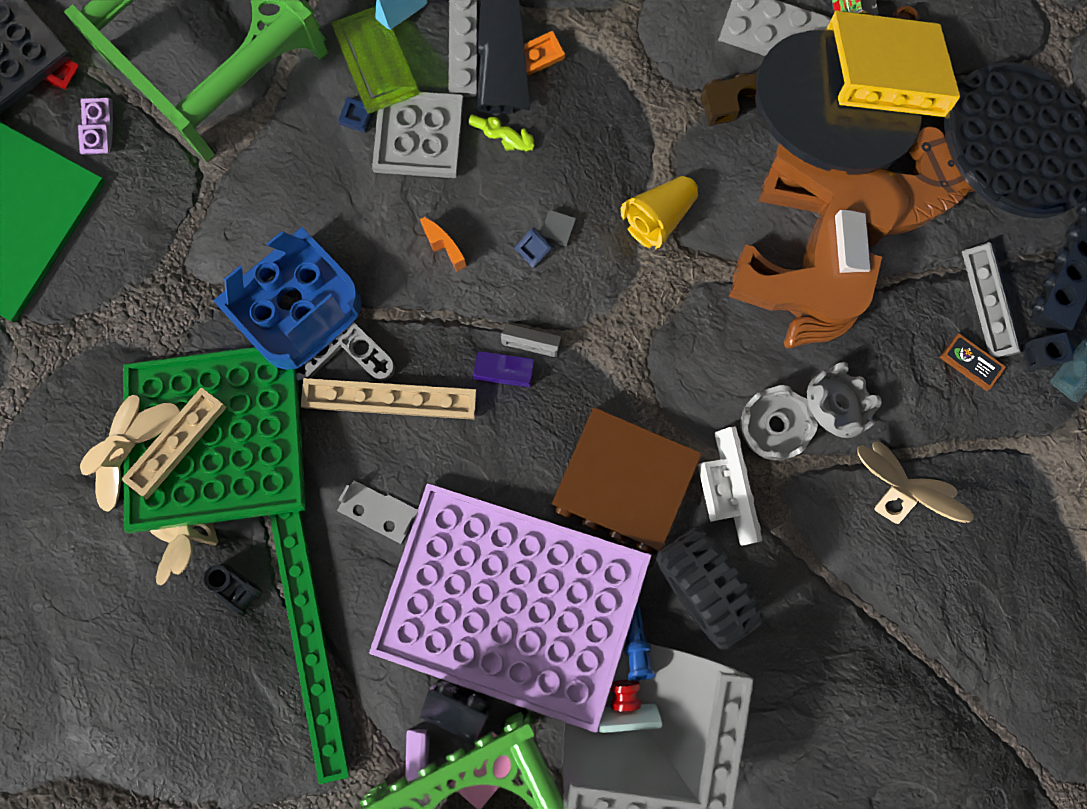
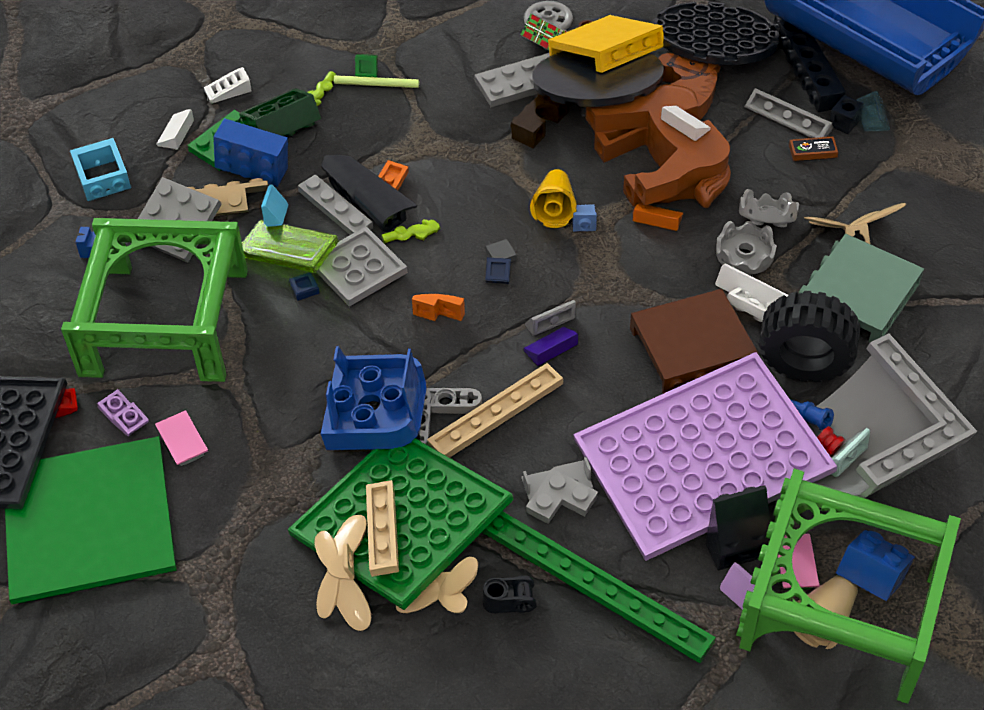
camera: 40 degrees left, 30 degrees down
(117, 195) = (182, 438): none -> bright pink piece
(366, 523) = (557, 491): none -> light grey plate
(670, 254) = (584, 218): none -> medium blue bracket
(742, 315) = (657, 216): none -> orange slope
(838, 561) = (868, 281): none -> sand green panel

